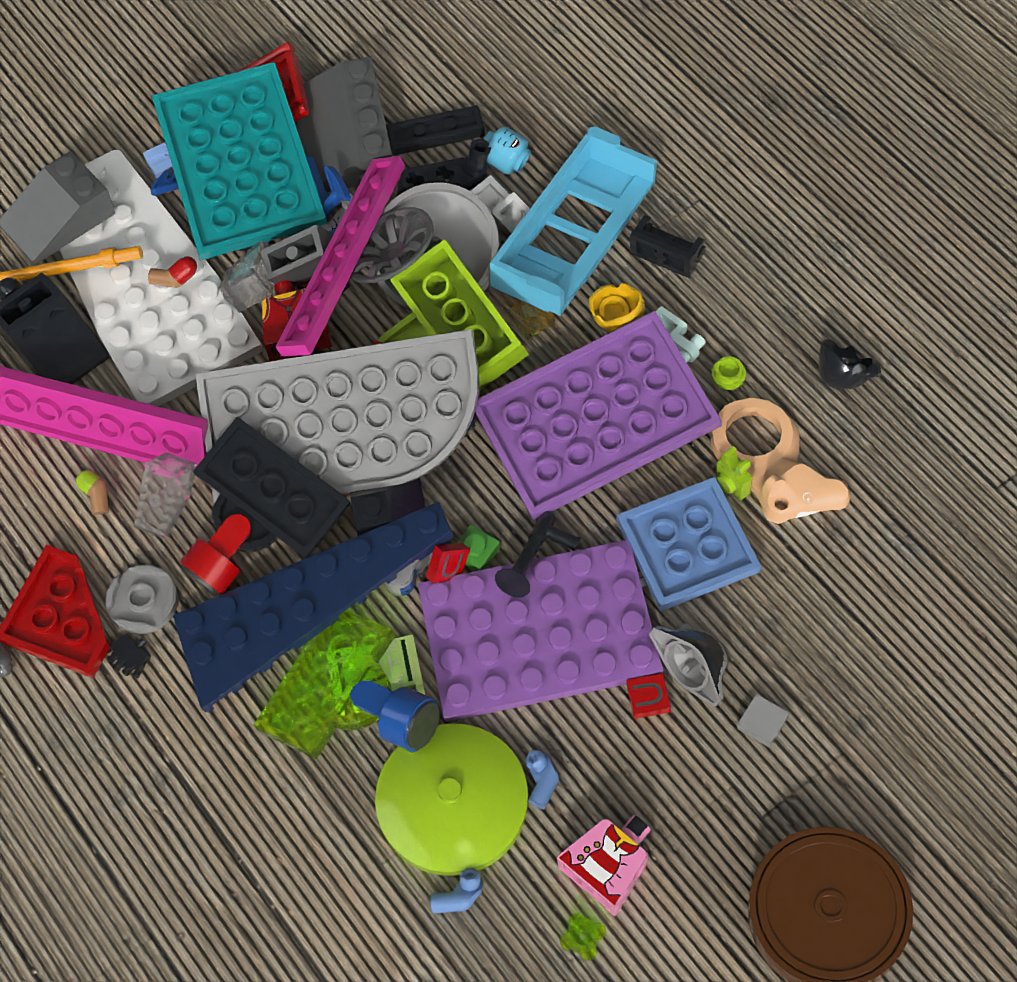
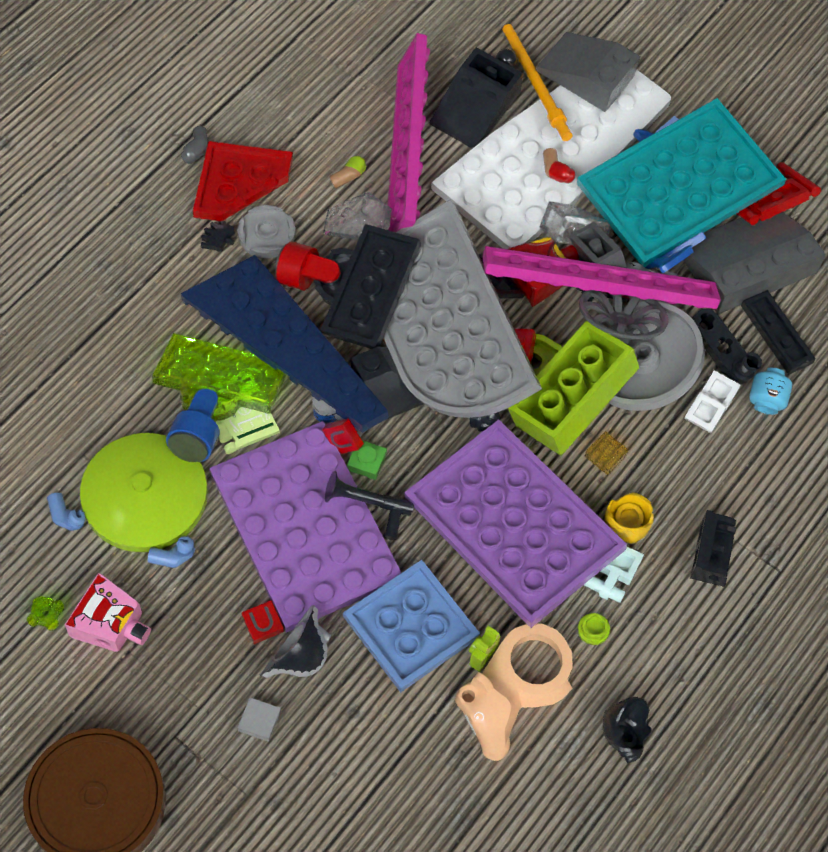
camera: 65 degrees right, 0 degrees up
(596, 173) = (769, 471): medium azure piece -> none

